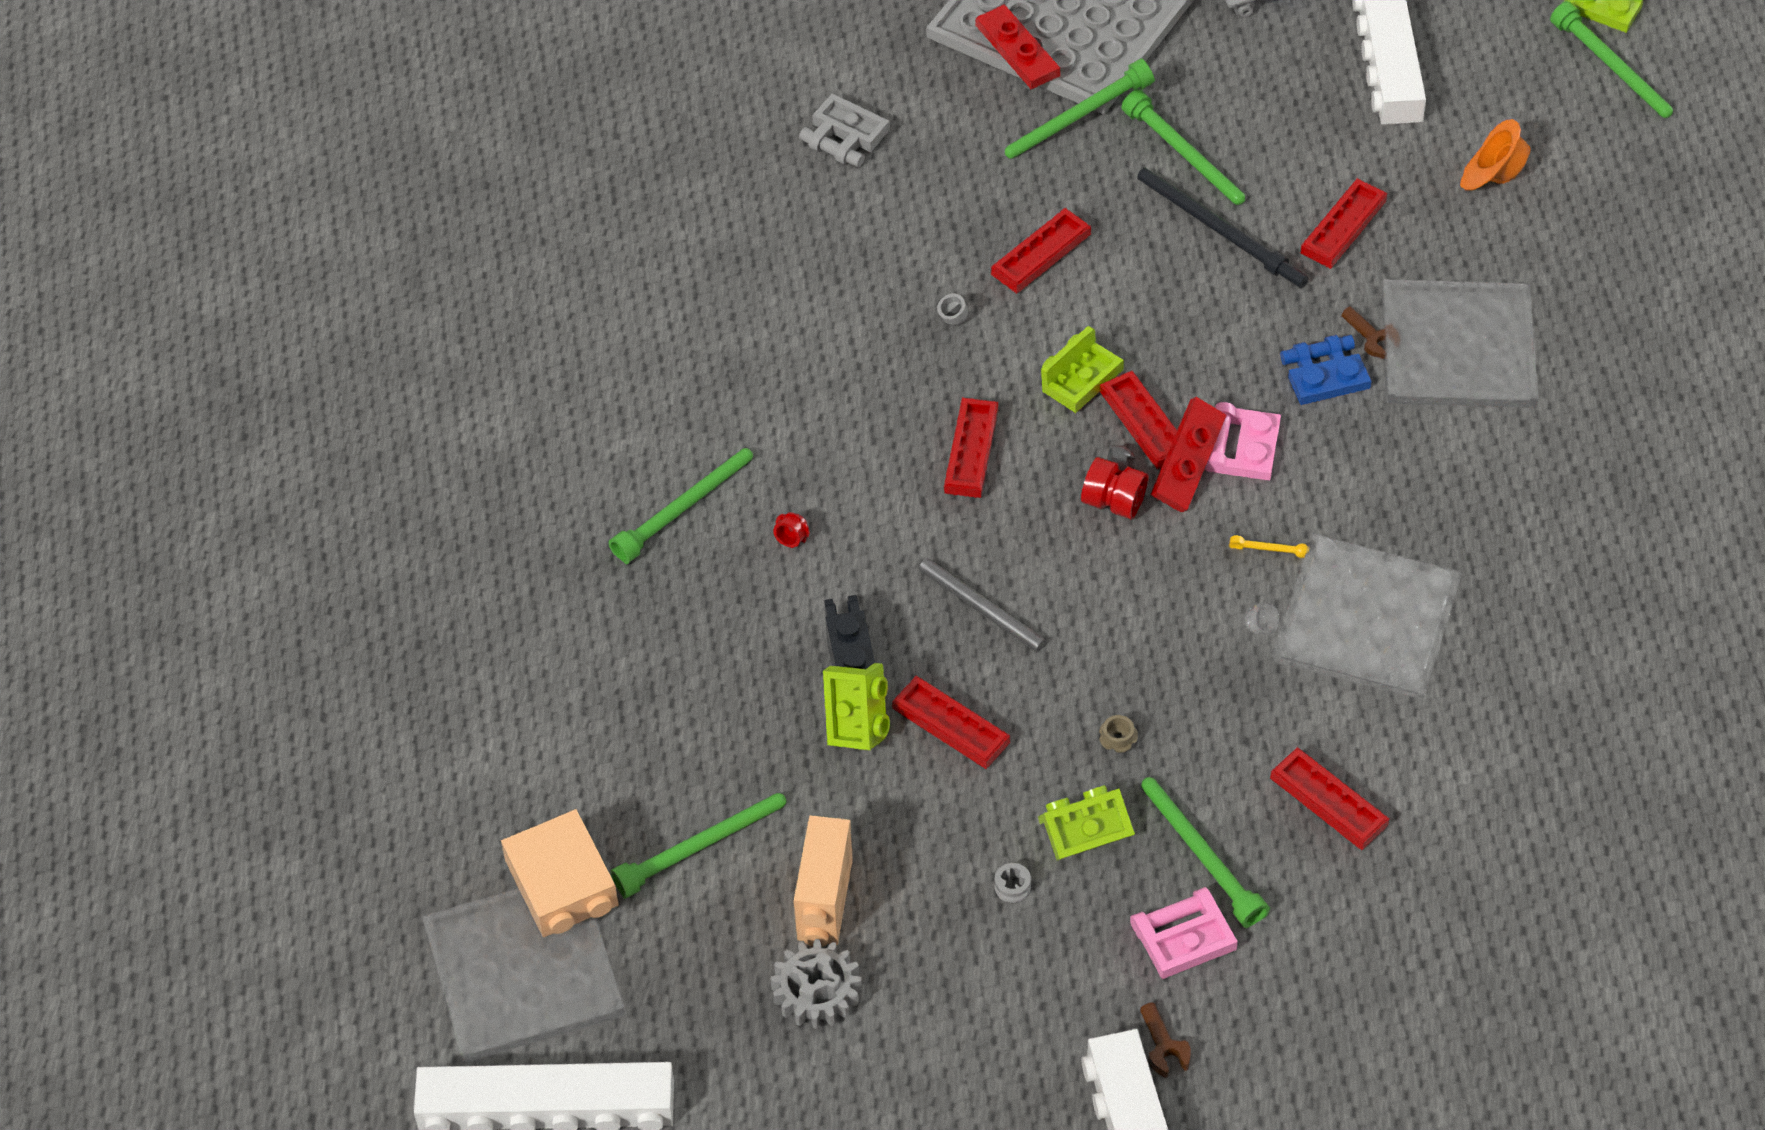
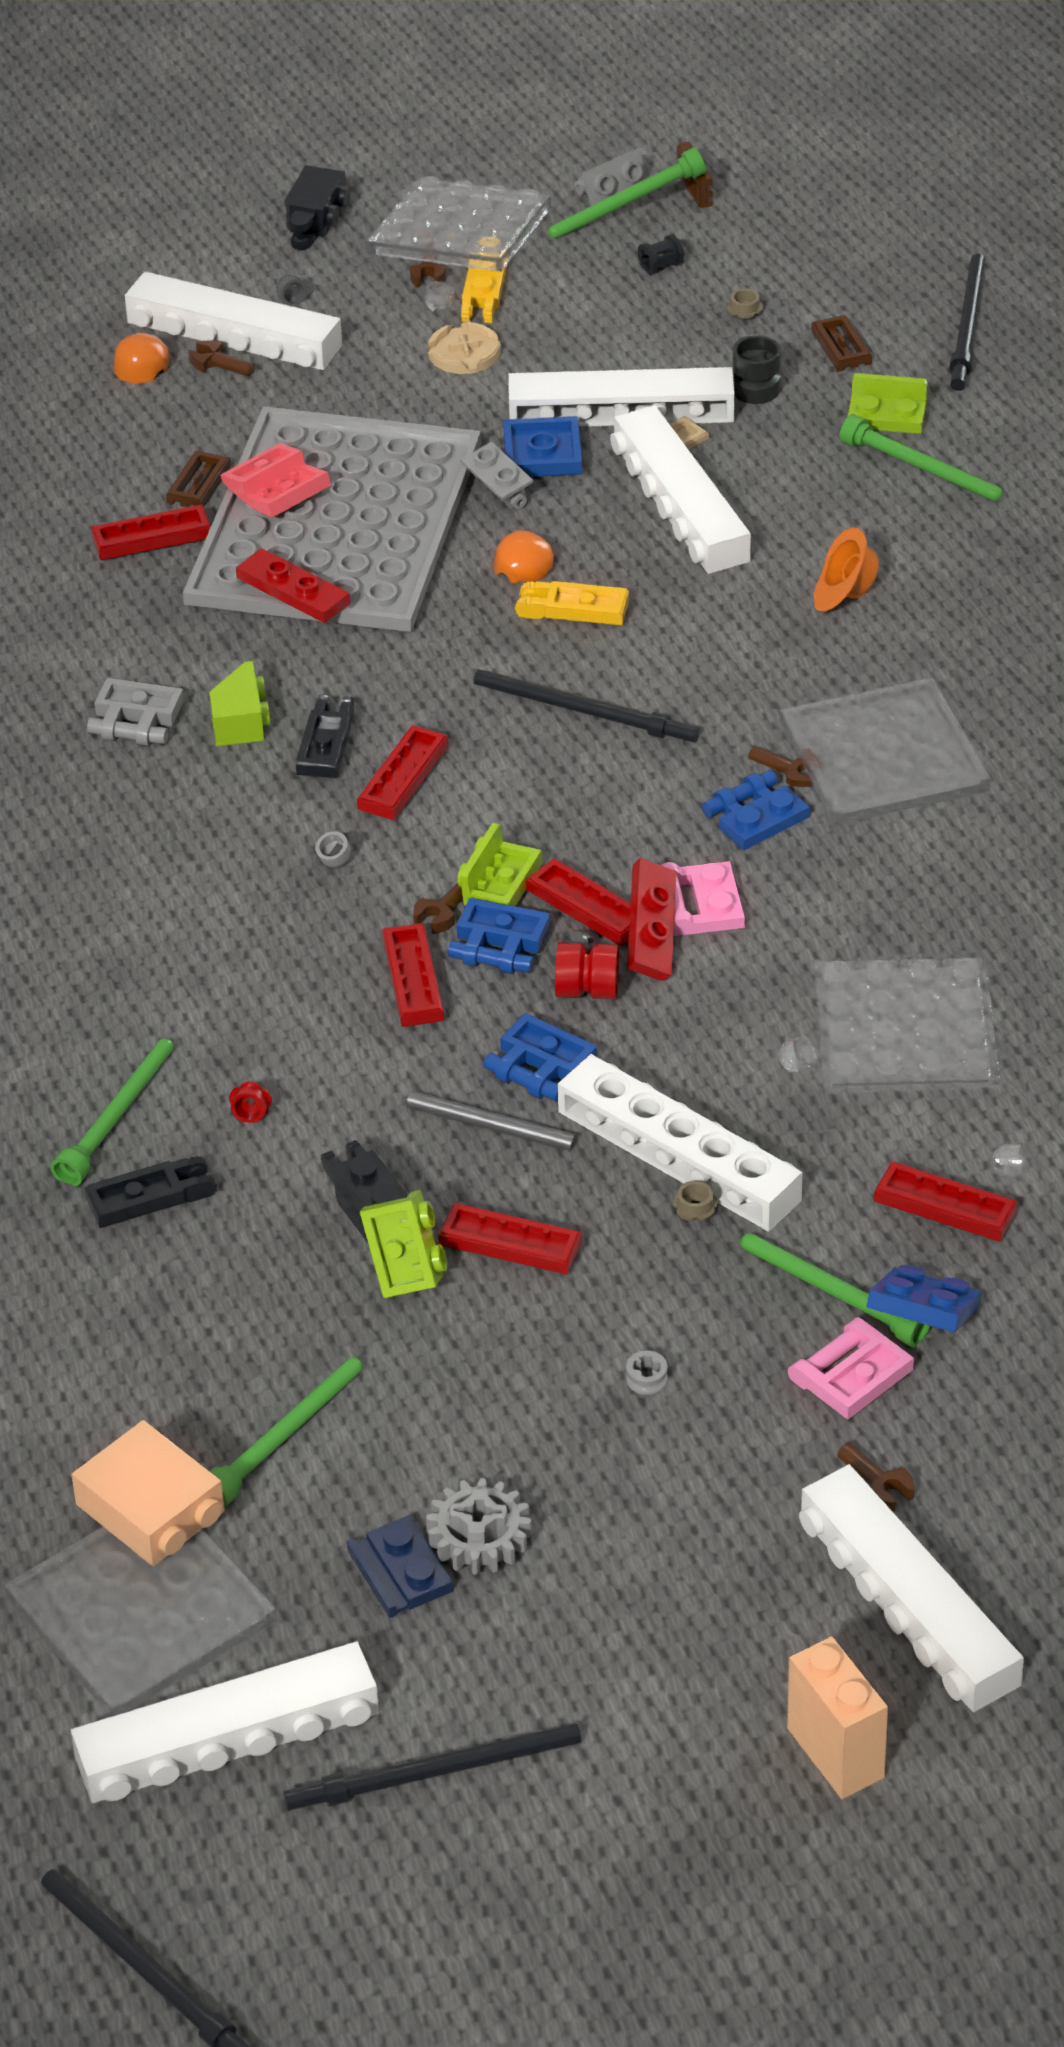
camera: 20 degrees left, 10 degrees down
(678, 588) = (149, 1190): none -> black hinge
(741, 998) = (400, 1566): none -> dark blue plate
(823, 880) = (445, 1417): light nougat brick -> none
(927, 150) = (237, 707): none -> lime slope
(990, 199) = (325, 738): none -> black hinge
(1021, 389) = (441, 909): none -> reddish brown bar
(1053, 550) = (542, 1046): none -> blue plate
(1063, 422) = (502, 926): none -> blue plate
(1087, 823) = (702, 1292): lime bracket -> none
(1137, 76) = (437, 580): bright green piece -> none
(1139, 106) = (446, 614): bright green piece -> none
(1173, 750) = (680, 1141): none -> white brick
(1226, 68) = (523, 557): none -> orange hair
(1239, 543) = (738, 991): yellow hinge -> none
(1251, 123) = (573, 602): none -> yellow hinge
(1268, 889) = (924, 1299): none -> blue plate
(1343, 223) = (713, 670): red plate -> none
(1401, 775) = (1009, 1160): none -> clear hinge

